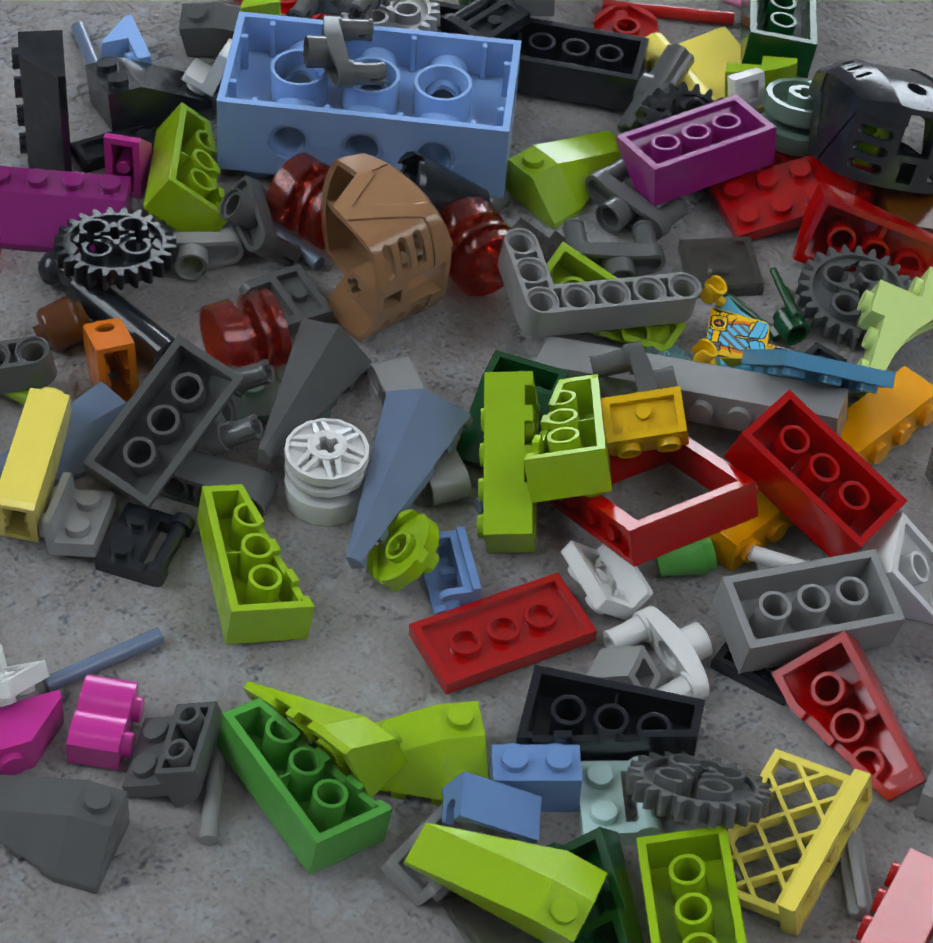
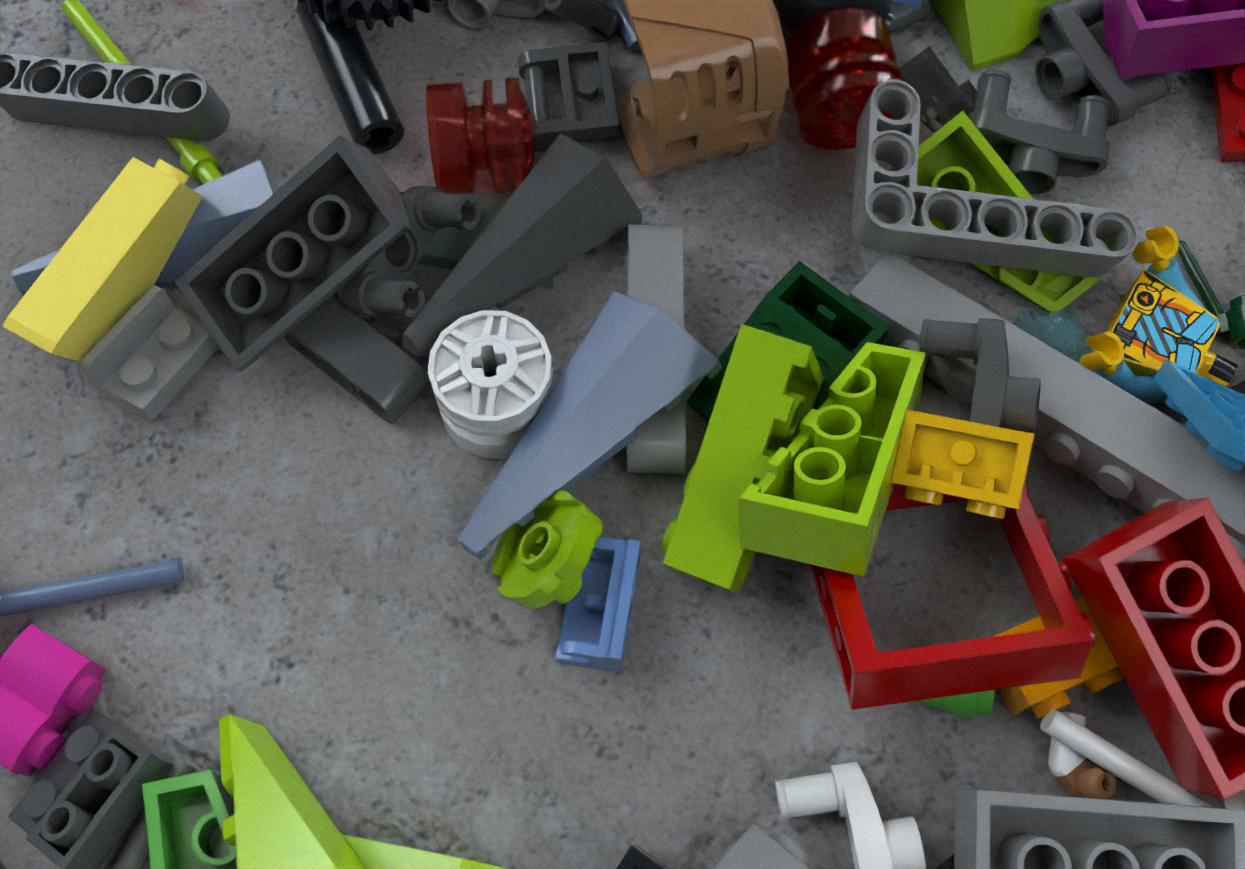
camera: 25 degrees right, 20 degrees up
(61, 324) = (272, 54): reddish brown head -> none
(111, 348) = (291, 106): orange torso -> none
(133, 539) = (214, 407): black plate -> none
(250, 581) = (316, 526): lime wedge -> none
(502, 633) = (632, 730): red plate -> none
(607, 579) = (809, 692): white bracket -> none
(726, 257) = (1186, 190): clear smoke tile -> none

